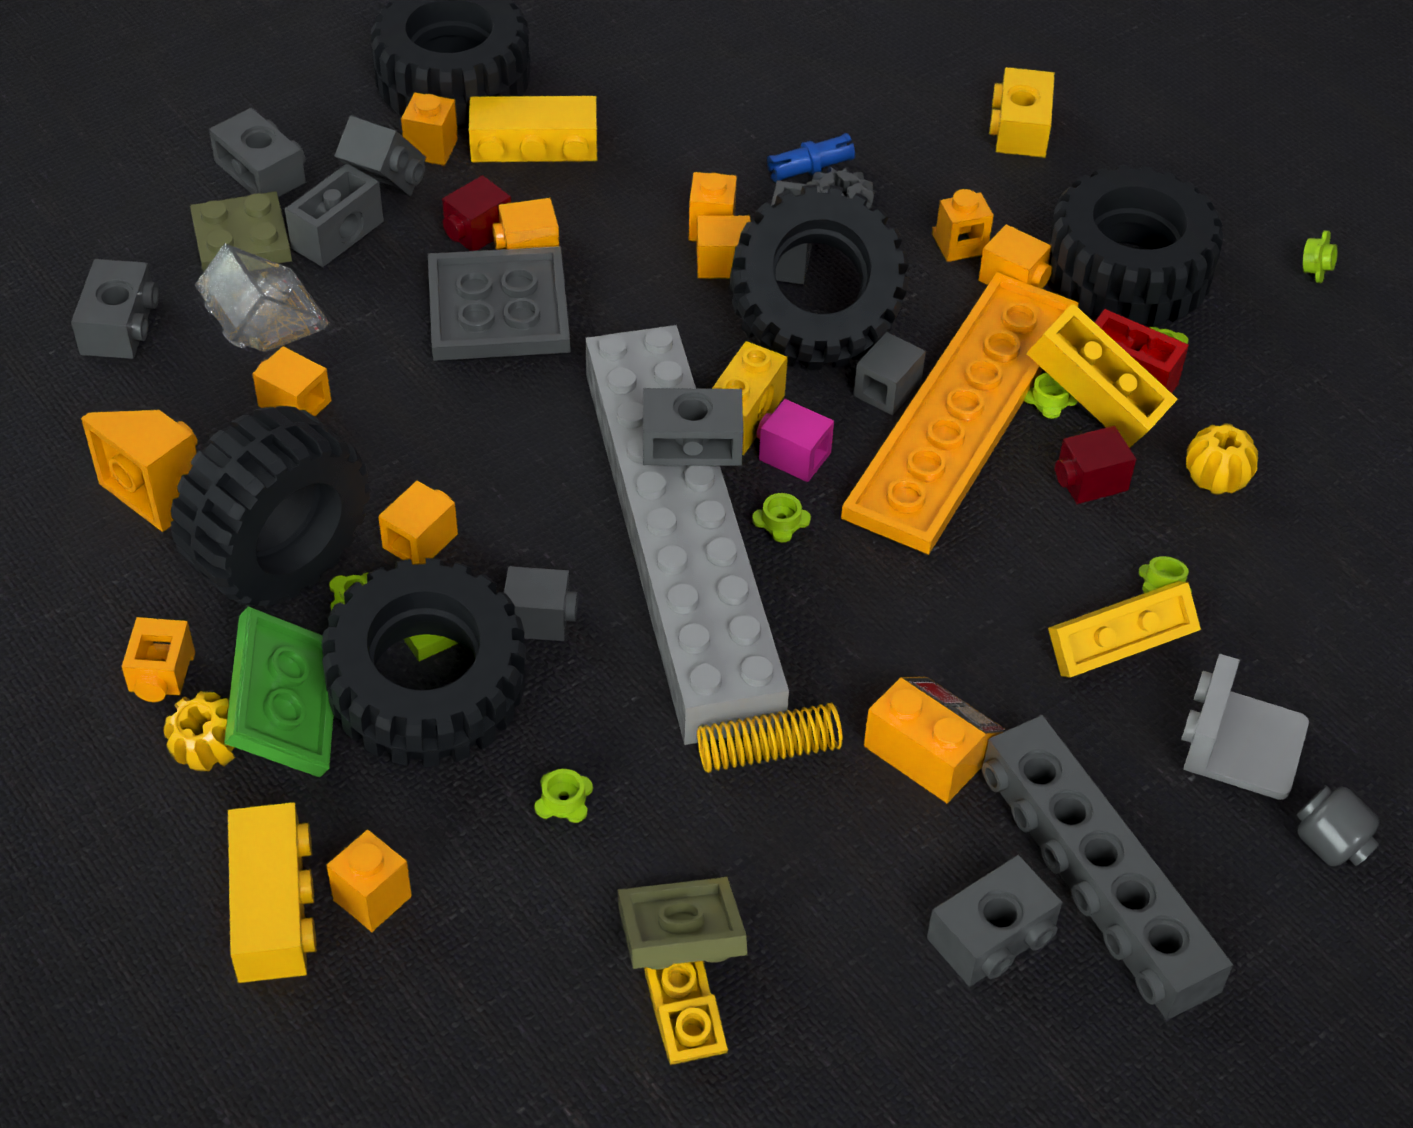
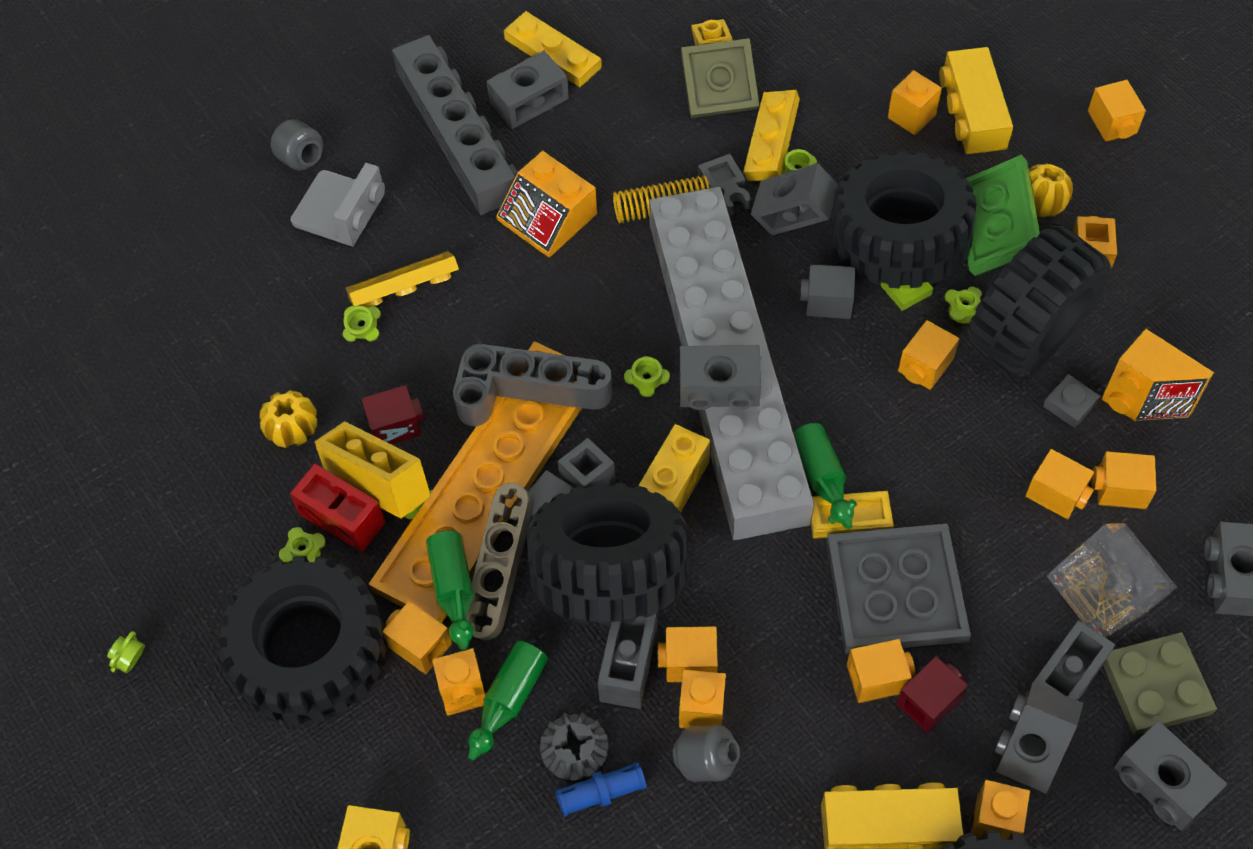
camera: 175 degrees left, 10 degrees up
(49, 869) = (1116, 110): none -> light orange brick
(213, 389) = (1125, 480): none -> light orange brick
(539, 378) = (871, 513): none -> yellow tile
(568, 401) = (824, 471): none -> green wheel
(576, 698) = (794, 199): none -> dark grey brick
(600, 846) = (771, 135): none -> yellow plate
(676, 769) = (725, 174): none -> dark grey plate
(706, 156) = (706, 753): none -> dark grey head
(795, 439) = (633, 436): dark pink brick -> none
(848, 388) = (586, 466): none -> dark grey brick
(918, 214) = (507, 694): none -> green wheel
(929, 472) = (590, 392): none -> dark grey beam
(938, 312) = (505, 562): none -> dark tan beam
(965, 1022) = (535, 36): none -> yellow plate
(987, 284) = (452, 583): none -> green wheel

